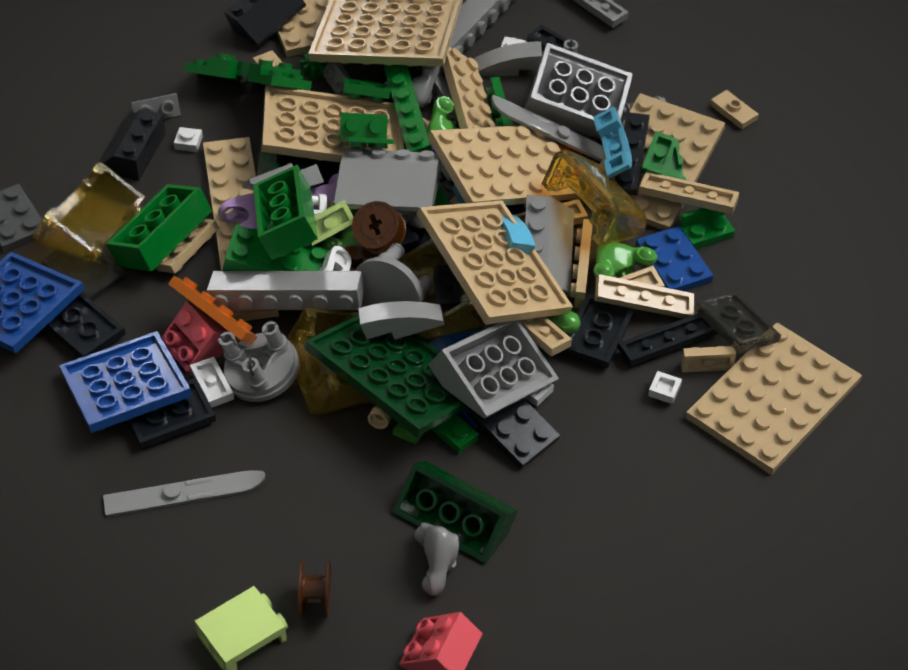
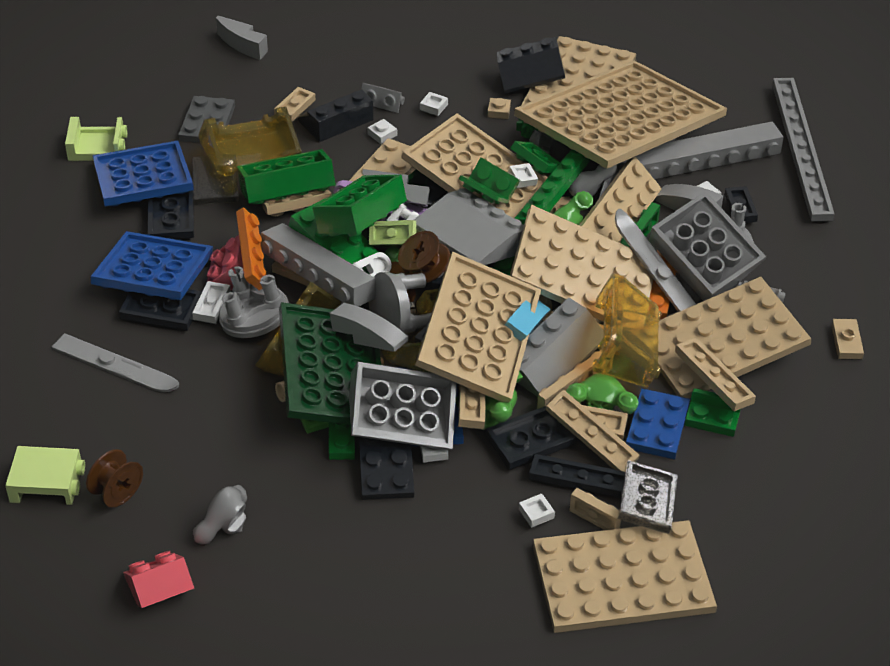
camera: 40 degrees right, 5 degrees down
(82, 156) = (297, 102): none -> tan plate
(209, 89) = (433, 103): none -> white plate
(264, 72) = (466, 103): green plate -> none
(375, 106) = (525, 174): none -> white plate
(449, 502) = (276, 493): dark green slope -> none
(614, 142) = (698, 290): medium azure slope -> none
(636, 131) = (702, 316): black plate -> none
(664, 157) = (722, 335): green wing -> none

